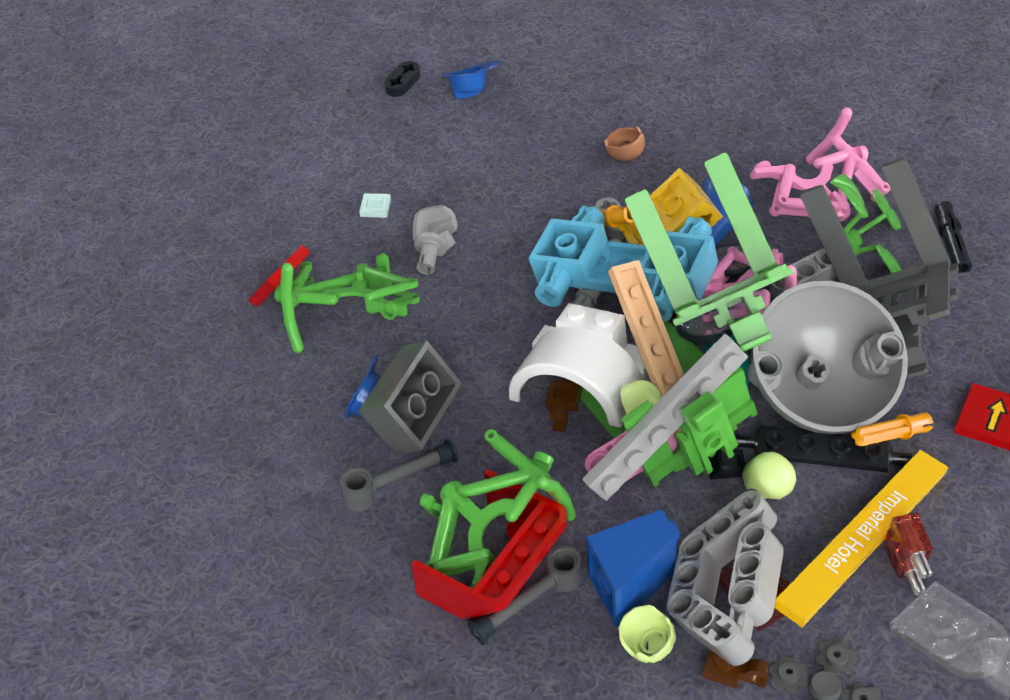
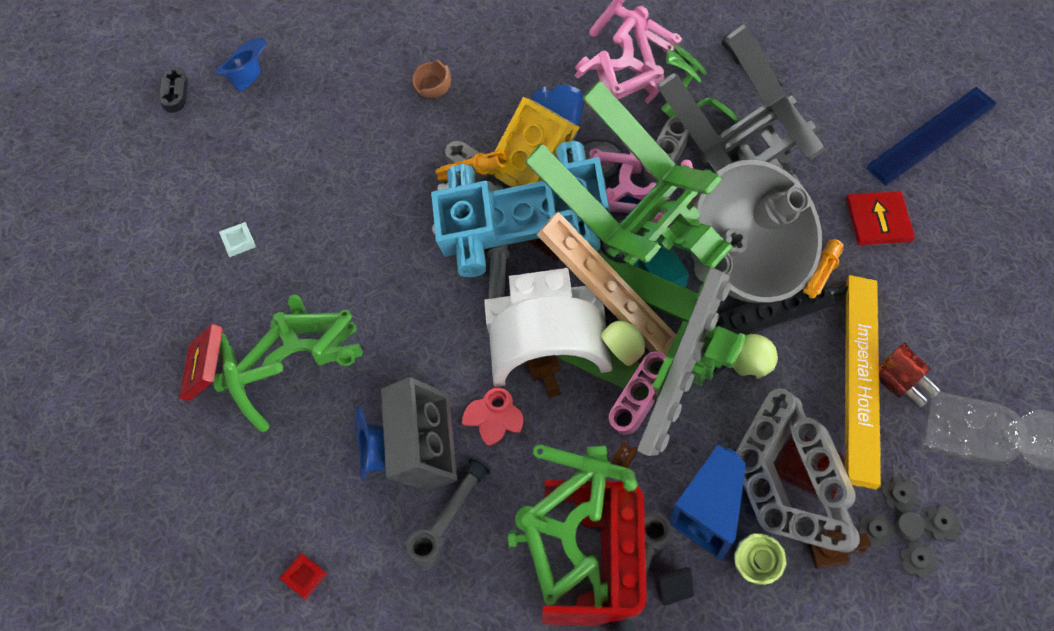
camera: 35 degrees left, 15 degrees up
(250, 467) = (303, 576): none -> red tile
(433, 235) = (319, 252): light grey piece -> none
(487, 416) = (493, 420): none -> coral plate
(554, 620) = (675, 586): none -> black slope
(584, 500) = (624, 455): none -> reddish brown bush

